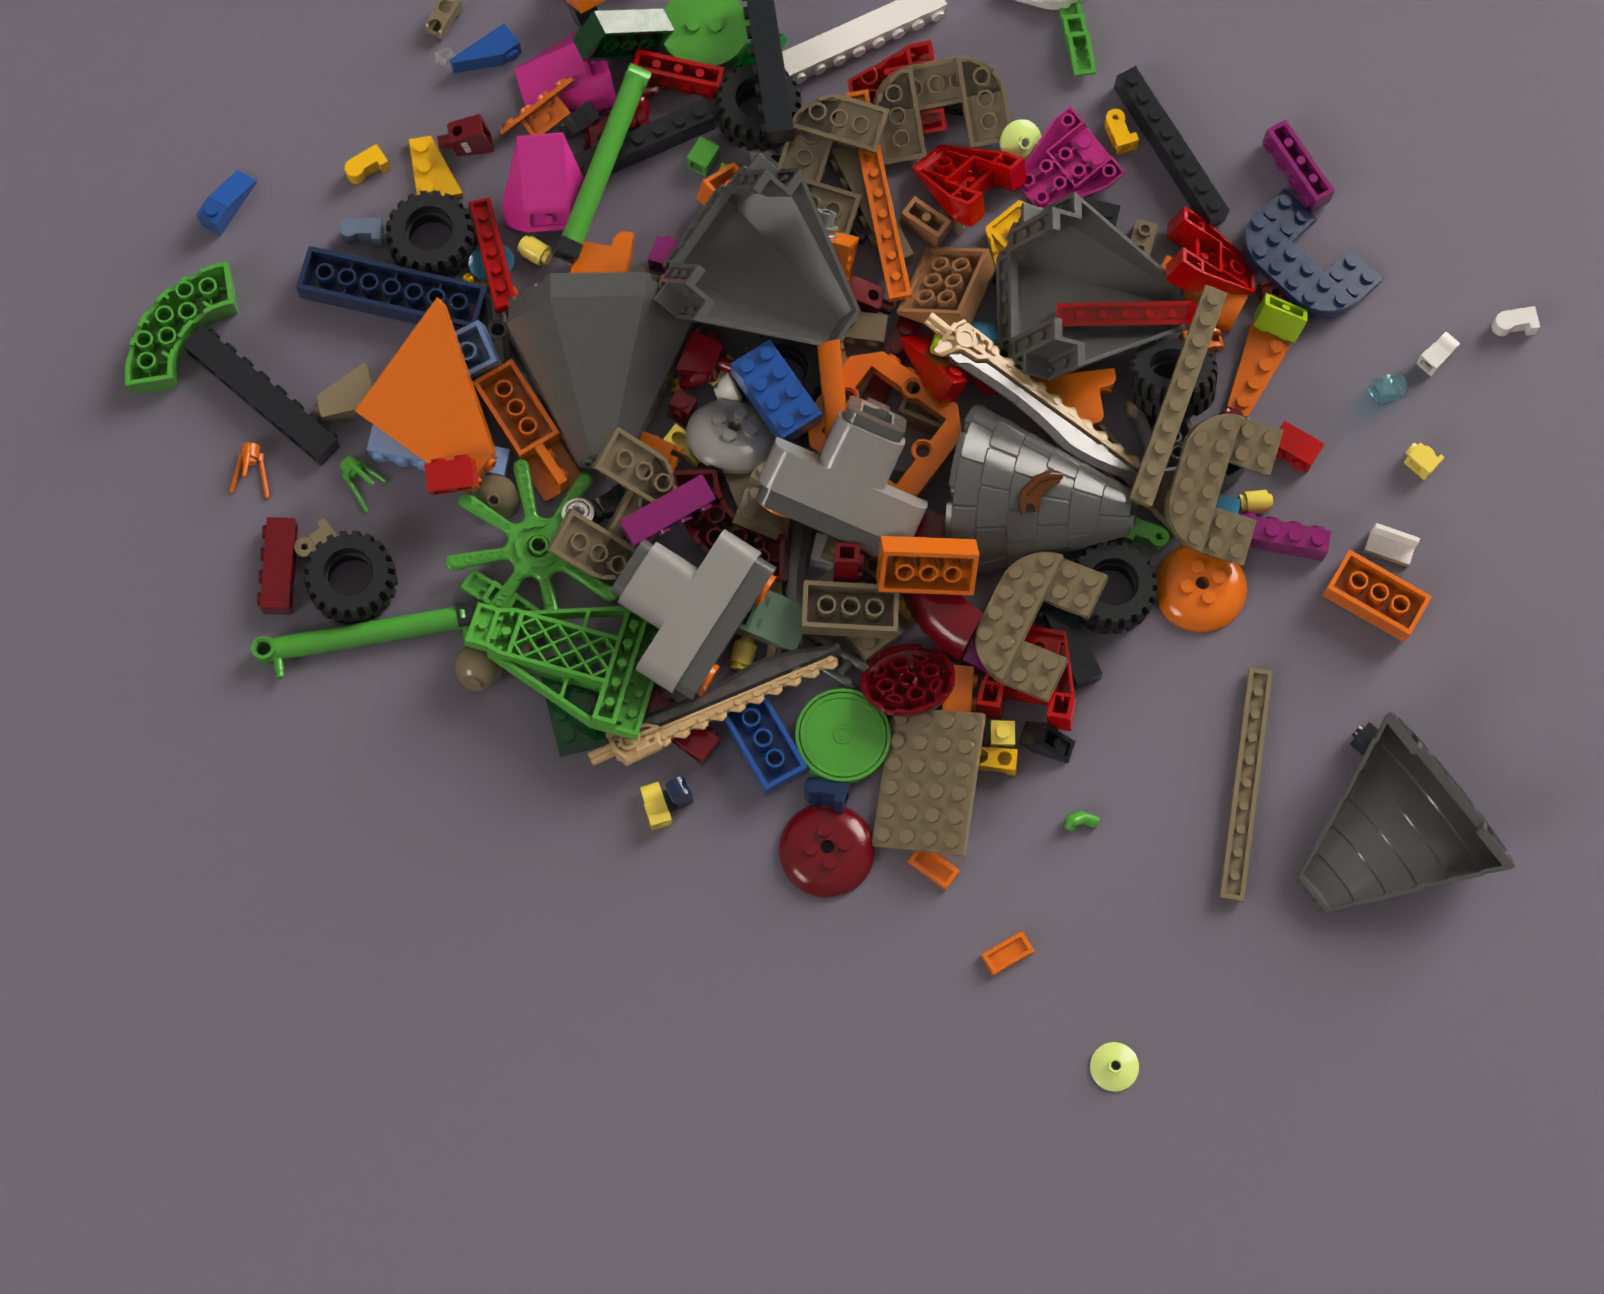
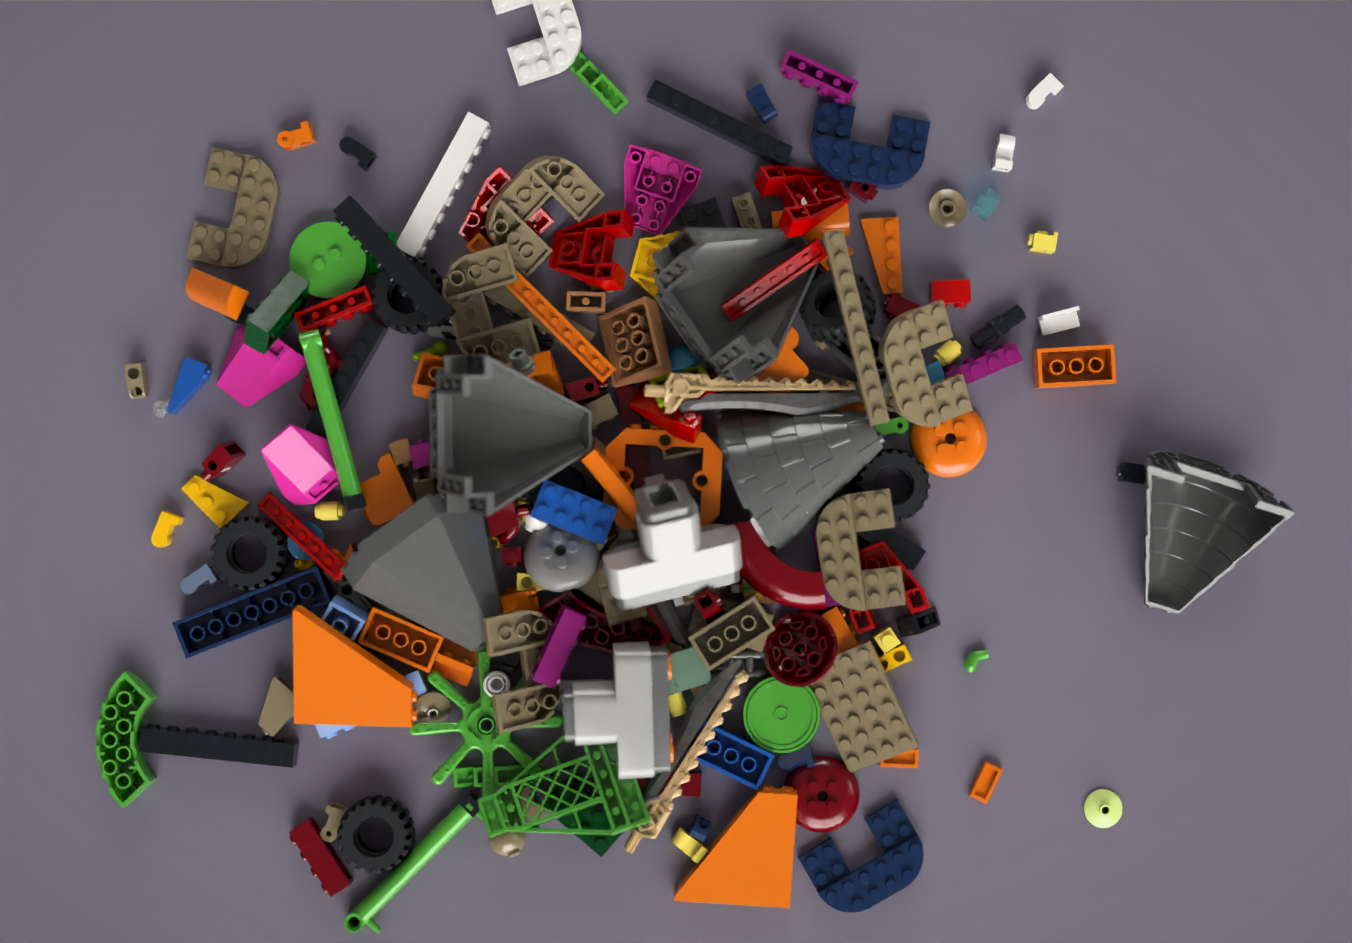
camera: 30 degrees left, 15 degrees up
(225, 202) = (88, 623): blue slope -> none
(249, 456) = (243, 793): orange plant -> none
(354, 469) = (320, 755): bright green plant -> none
(451, 475) = (395, 727): red brick -> none
(543, 114) = (263, 407): orange bracket -> none
(578, 120) = (290, 392): black leg -> none
(644, 242) = (401, 452): none -> medium nougat brick
(703, 156) = (396, 358): bright green brick -> none
(712, 856) = (751, 855): none -> orange slope
(826, 971) = (877, 878): none -> dark blue plate
(927, 565) = (766, 572): orange brick -> none
(1013, 135) = (604, 192): yellowish green dish -> none
(1035, 488) = (803, 469): reddish brown piece -> none
(1118, 132) = (674, 137): yellow leg -> none
(1225, 155) = (761, 103): none -> dark blue leg
(1245, 785) = (1068, 559): dark tan plate -> none
(1280, 318) = (880, 205): lime brick -> none
(1323, 510) = (997, 327): none -> black piece
(1353, 360) = (951, 199): none -> dark tan dish

